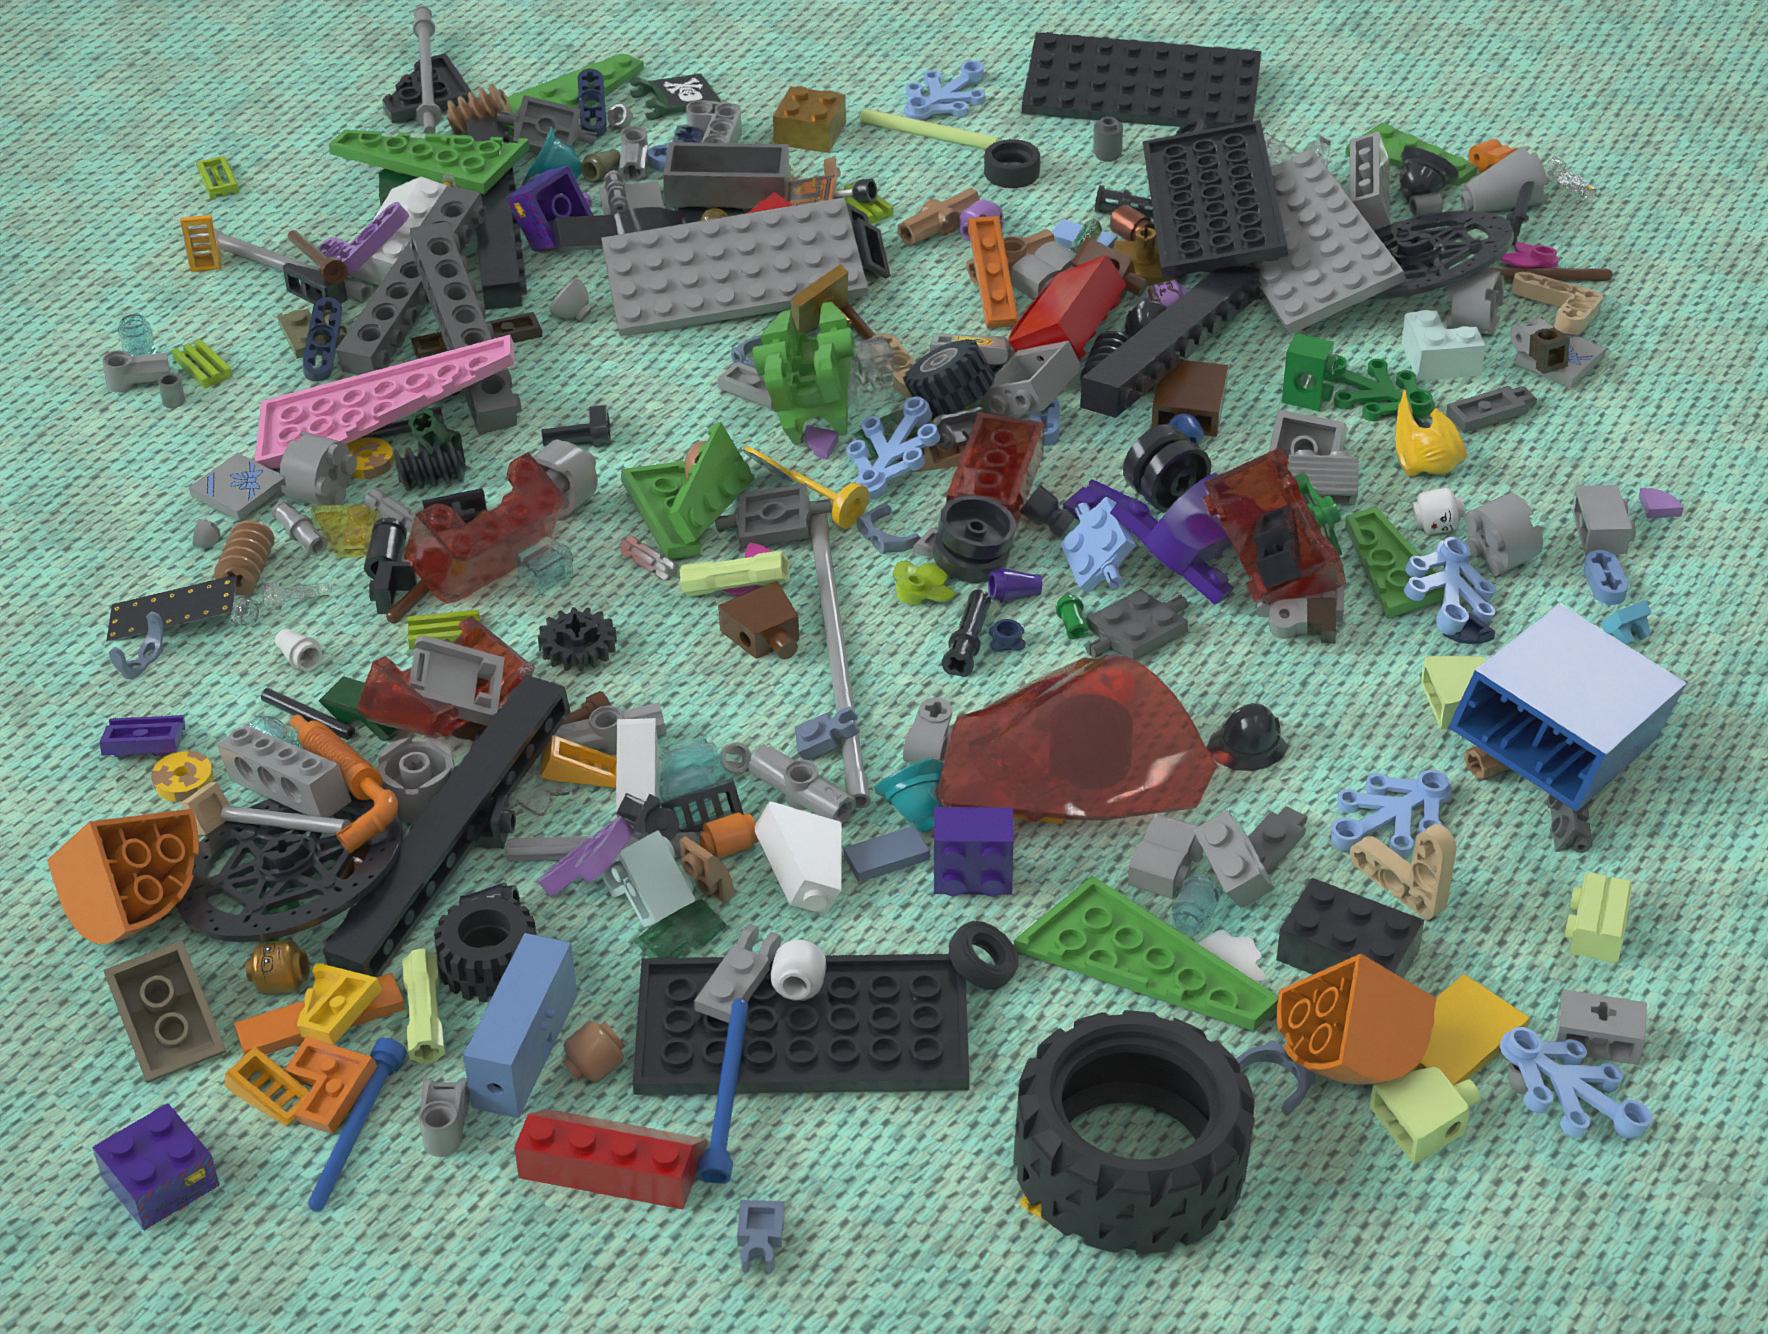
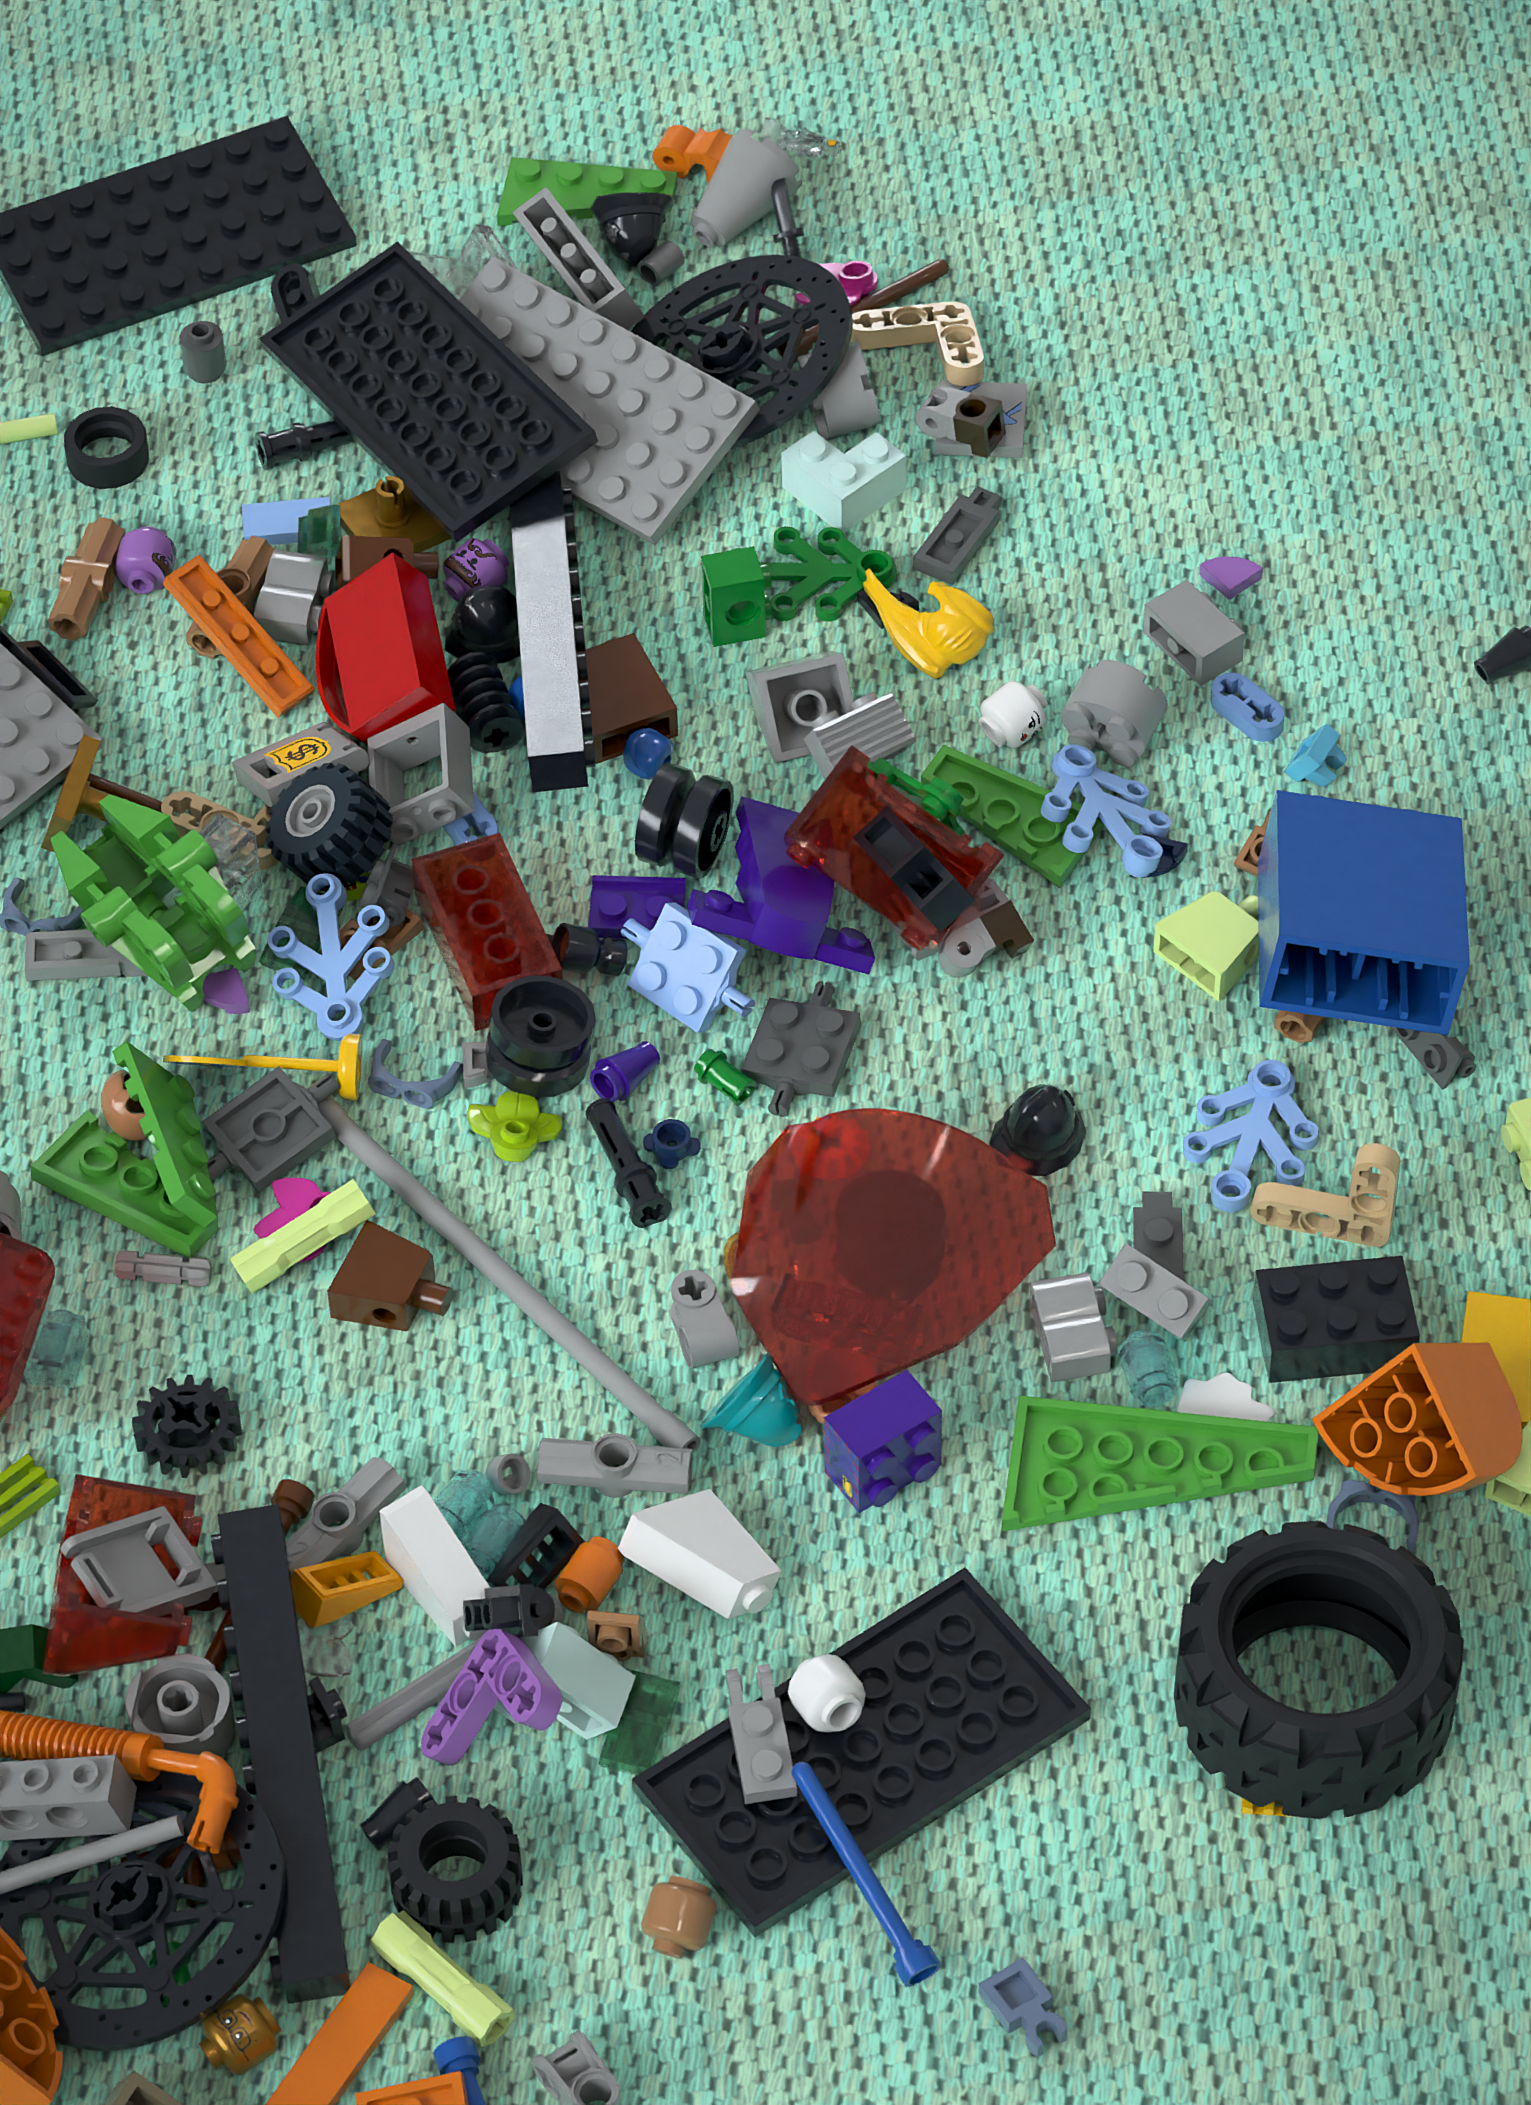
camera: 35 degrees left, 10 degrees up
(335, 1002) = (351, 2034): yellow wing -> none
(520, 1025) = (588, 1934): medium blue brick -> none
(608, 1157) = (799, 2019): red slope -> none
(822, 732) = (578, 1390): sand blue plate -> none
(886, 853) = (774, 1493): sand blue tile -> none
(975, 969) = (978, 1573): black tyre -> none
(1127, 221) = (338, 472): copper brick -> none

